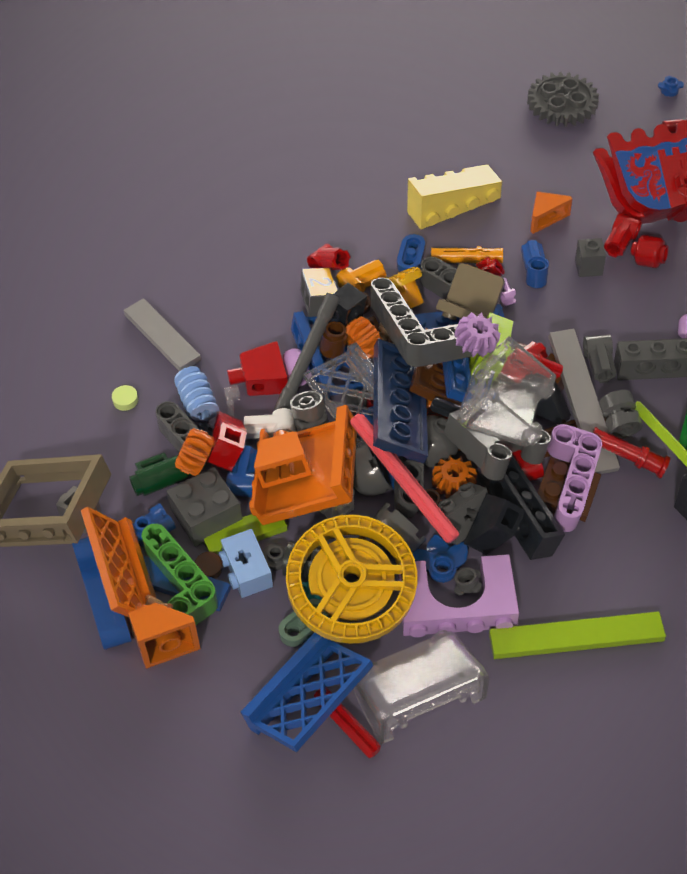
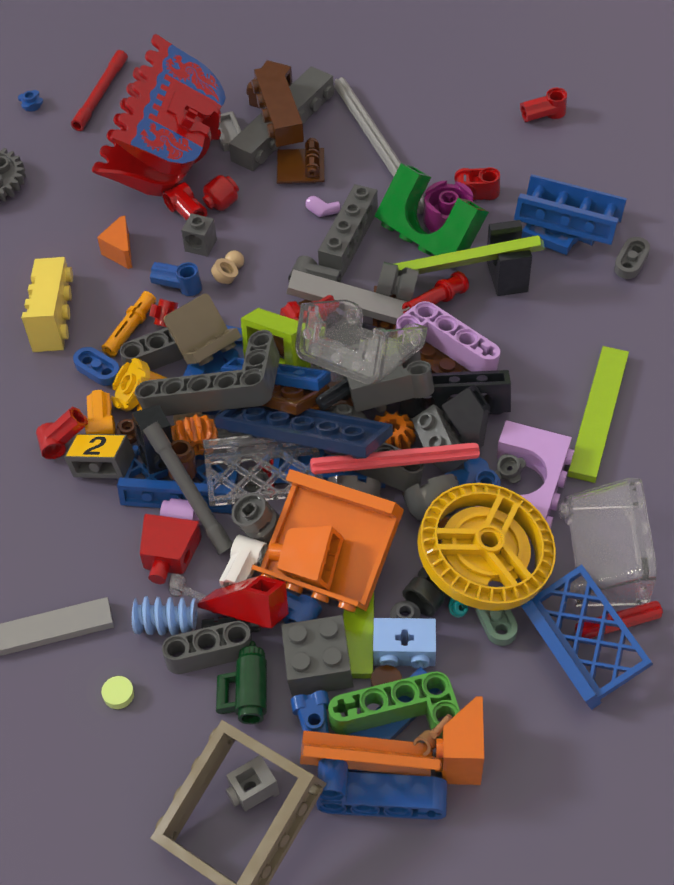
camera: 65 degrees left, 0 degrees up
(194, 452) = (261, 631): orange gear -> none
(477, 334) = (282, 327): lavender gear -> none
(582, 295) = (227, 269): none -> tan plate

